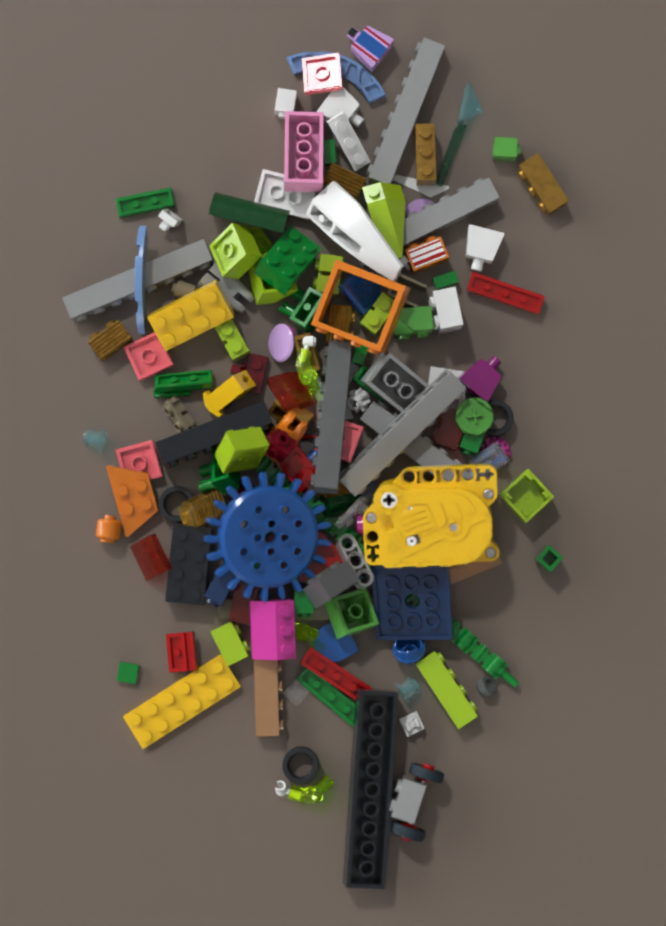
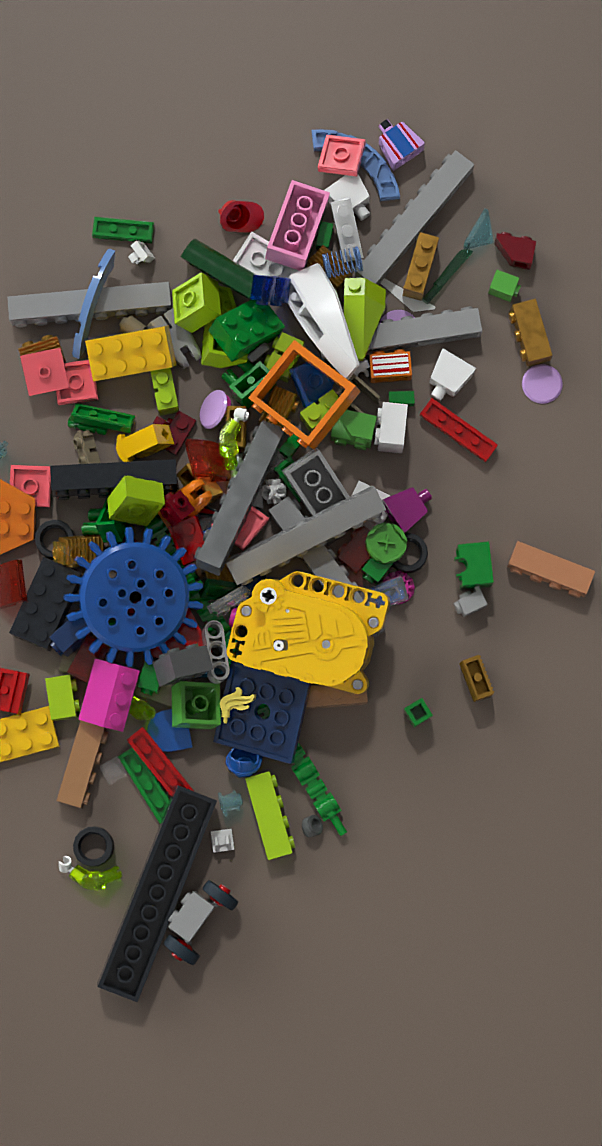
camera: 20 degrees right, 5 degrees down
(118, 356) = (44, 371): none -> coral plate
(248, 157) = (241, 216): none -> red piece
(285, 101) = (296, 170): white brick -> none
(299, 219) = (270, 289): none -> clear blue brick
(305, 278) = (259, 353): none -> dark grey tile
(342, 180) = (328, 270): none -> medium blue piece
(385, 599) = (235, 701): none -> light yellow piece
(506, 113) = (516, 250): none -> dark red slope
(526, 496) = (414, 641): lime container -> none
(560, 409) = (478, 565): none -> green piece
(564, 445) = (470, 602): none -> light grey brick
(566, 227) = (542, 383): none -> lavender piece
(590, 511) = (476, 678): none -> pearl gold brick
(625, 393) = (550, 569): none -> nougat brick

